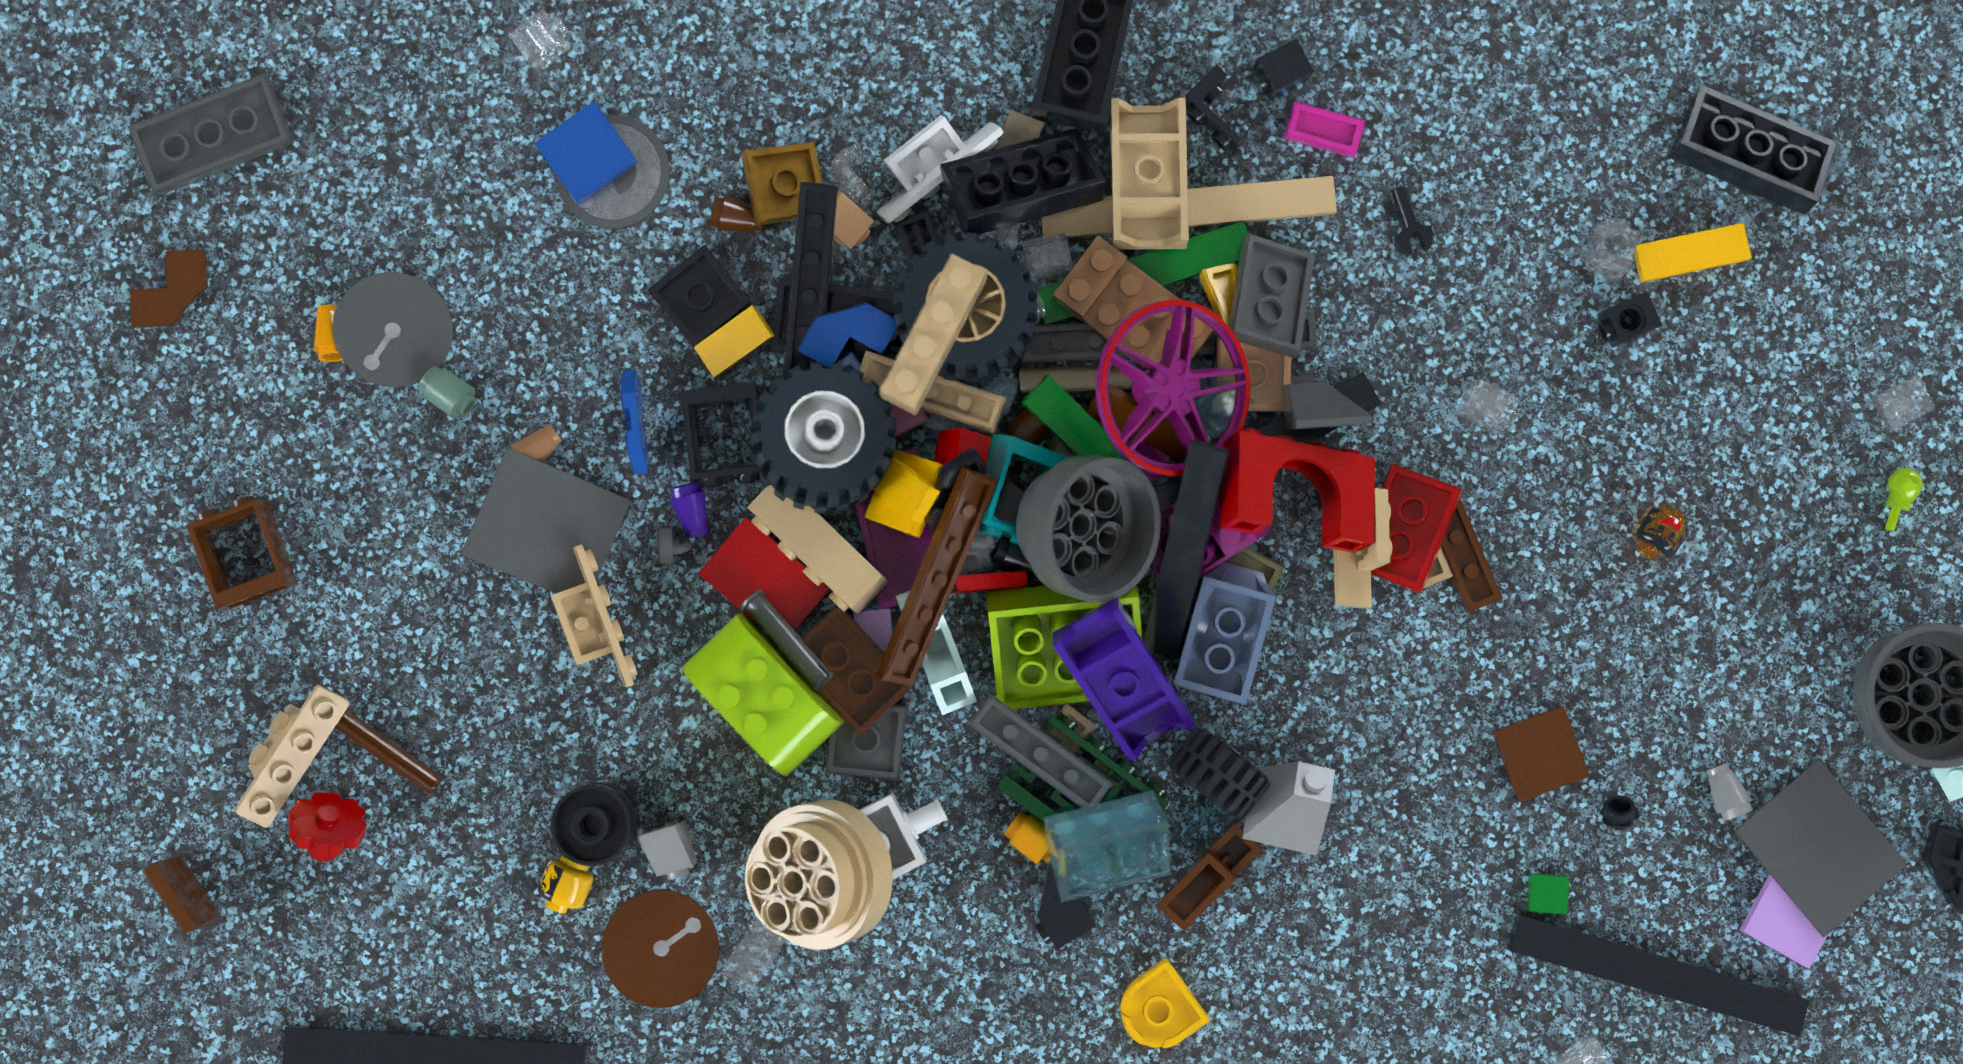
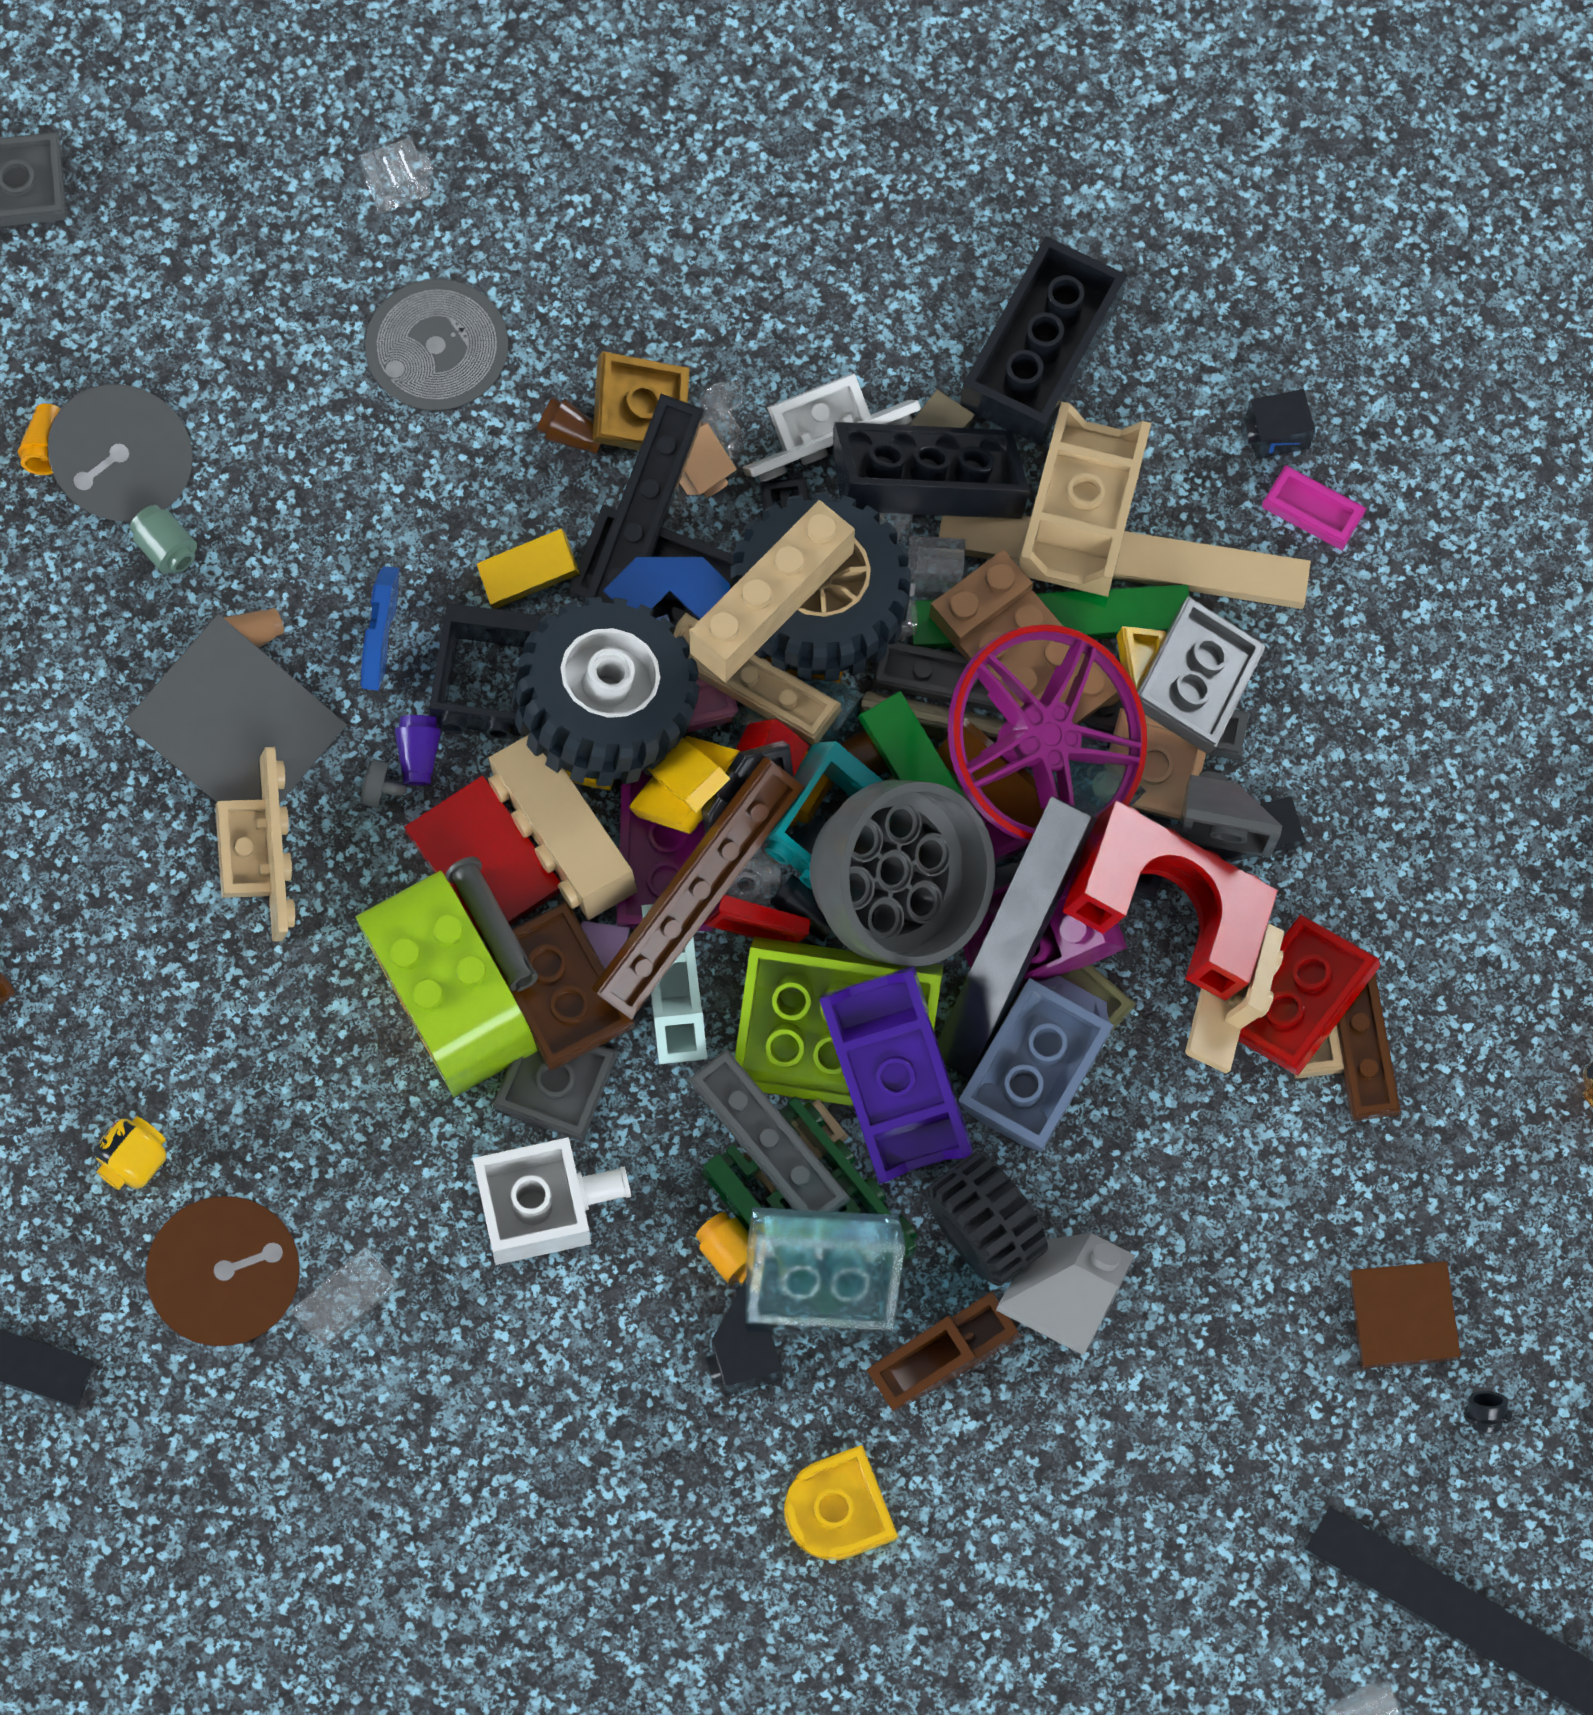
camera: 10 degrees right, 15 degrees down
(586, 152) = (412, 313): blue tile -> none
(595, 823) = (190, 1084): black wheel -> none
(669, 849) = (272, 1139): light grey slope -> none
(699, 296) = (499, 507): black tile -> none
(849, 854) = (421, 1197): tan wheel -> none
(1208, 91) = (1182, 425): black bracket -> none
(1409, 224) = (1392, 644): black bar -> none
(1488, 406) = (1436, 875): clear brick -> none
(1548, 893) = (1372, 1492): green tile -> none

